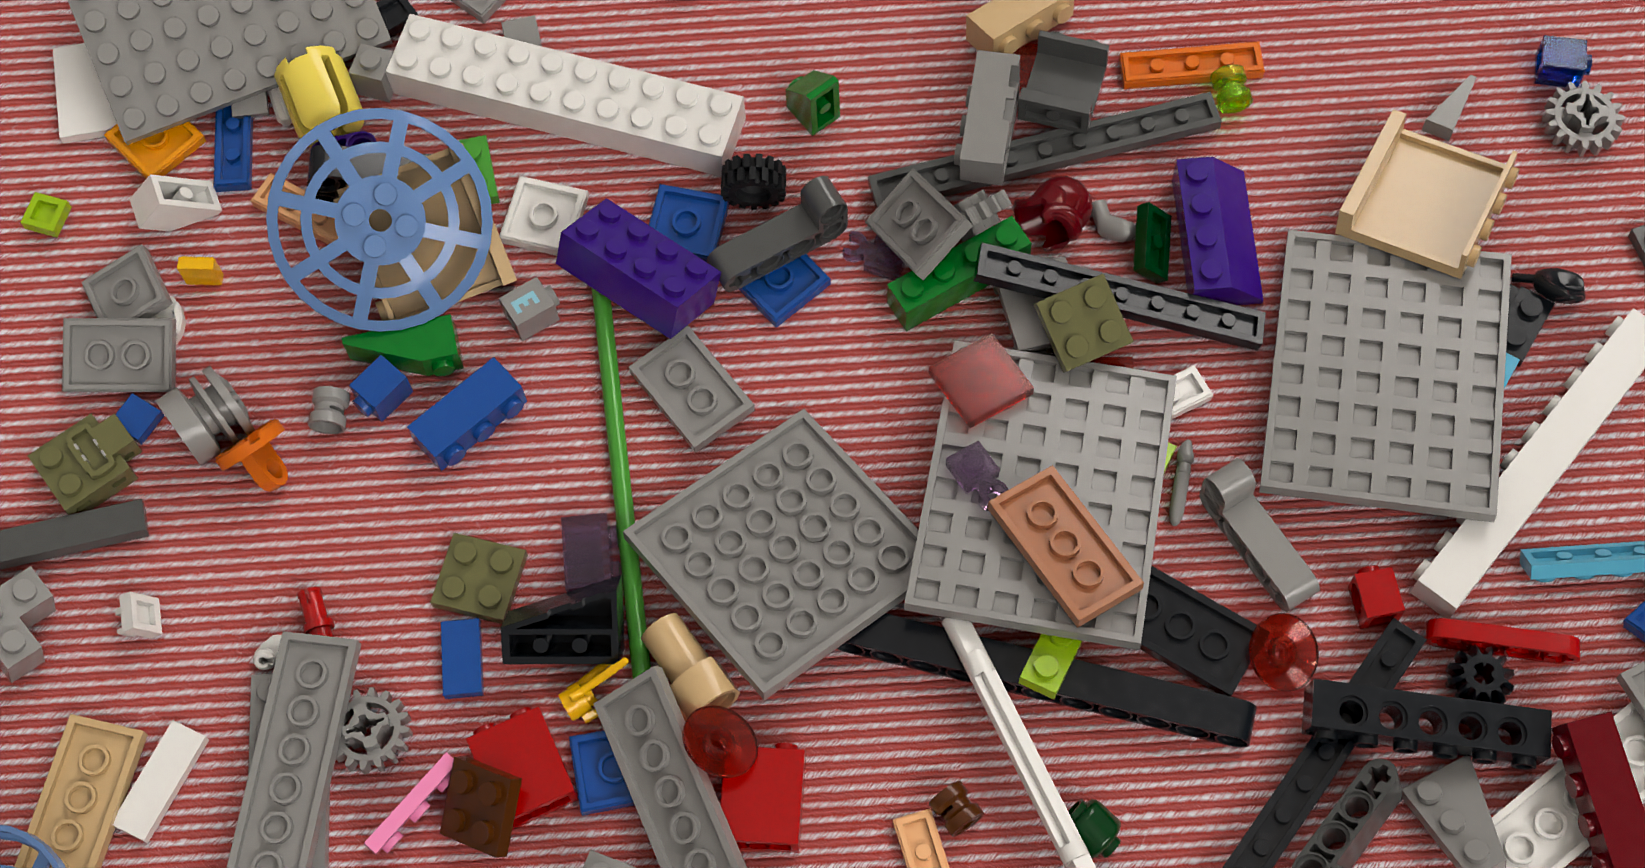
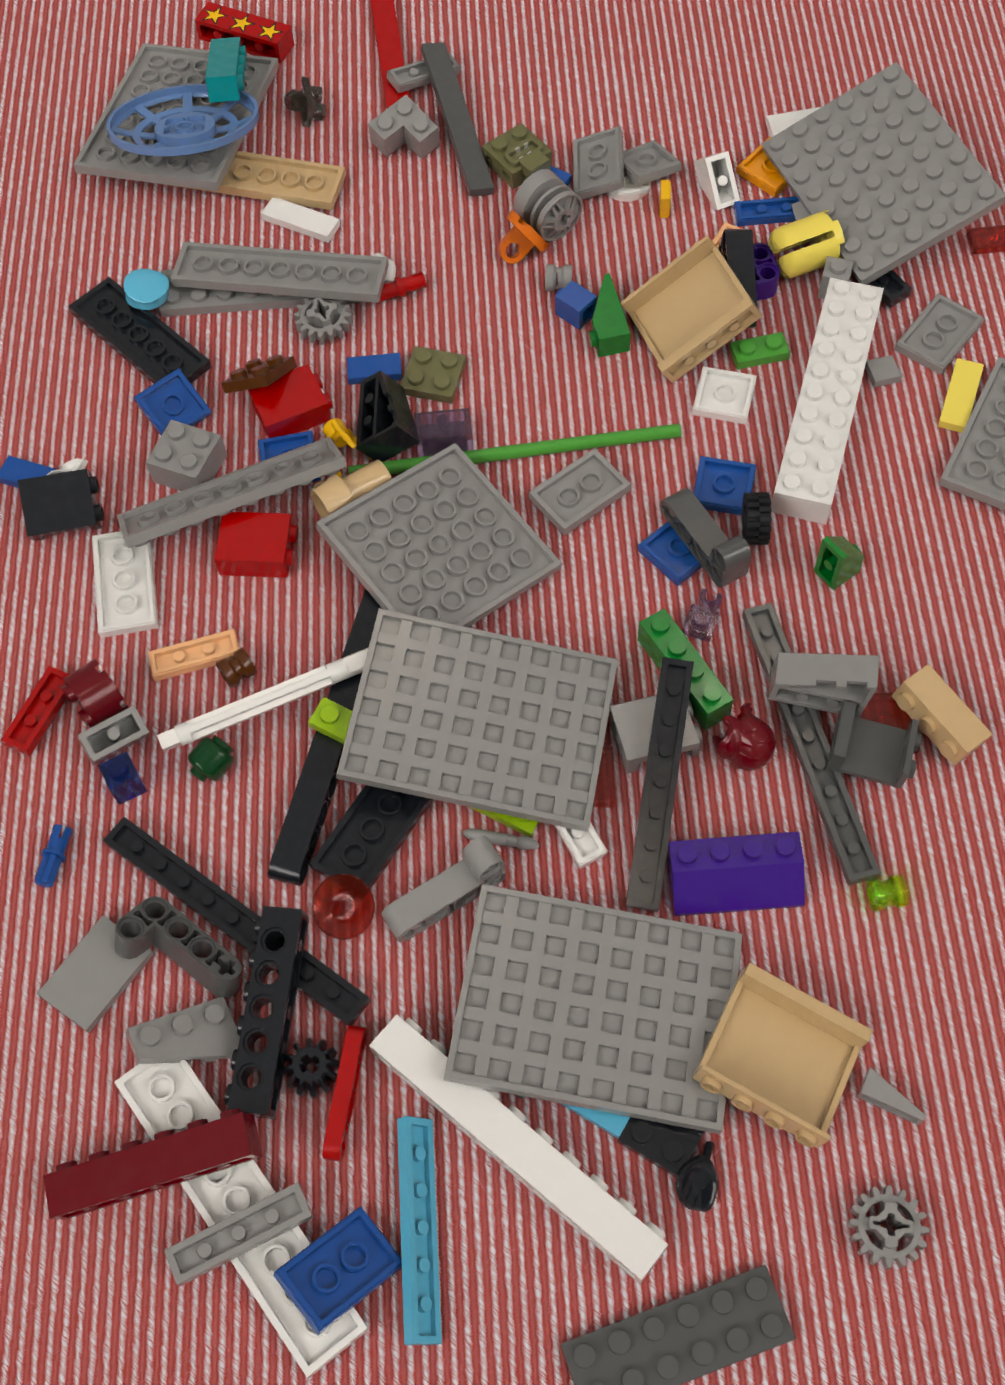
camera: 90 degrees right, 5 degrees down
(46, 214) = (705, 116): lime plate -> none
(139, 615) = (410, 194): white tile -> none
(353, 216) = (696, 273): medium blue dish -> none
(411, 807) = (266, 342): bright pink plate -> none
(468, 414) = (556, 355): blue brick -> none
(530, 308) = (642, 386): light grey brick -> none
(638, 268) = (673, 444): dark purple brick -> none
(728, 733) = (297, 492): clear red dish -> none
(918, 224) = (718, 626): light grey tile -> none
(976, 470) = (490, 661): clear purple plate -> none
(981, 380) = (576, 672): clear red tile -> none
(982, 211) = (733, 672): light grey gear -> none
(1065, 546) = (420, 718): nougat plate -> none
(1083, 323) = (628, 746): olive plate -> none
(1111, 226) = (740, 788): light grey arm -> none
(1152, 243) = (722, 819): dark green plate -> none
(1187, 64) = (914, 864): orange tile -> none
(1375, 596) = (390, 985): red brick -> none
(1561, 61) = (953, 1212): clear blue brick -> none

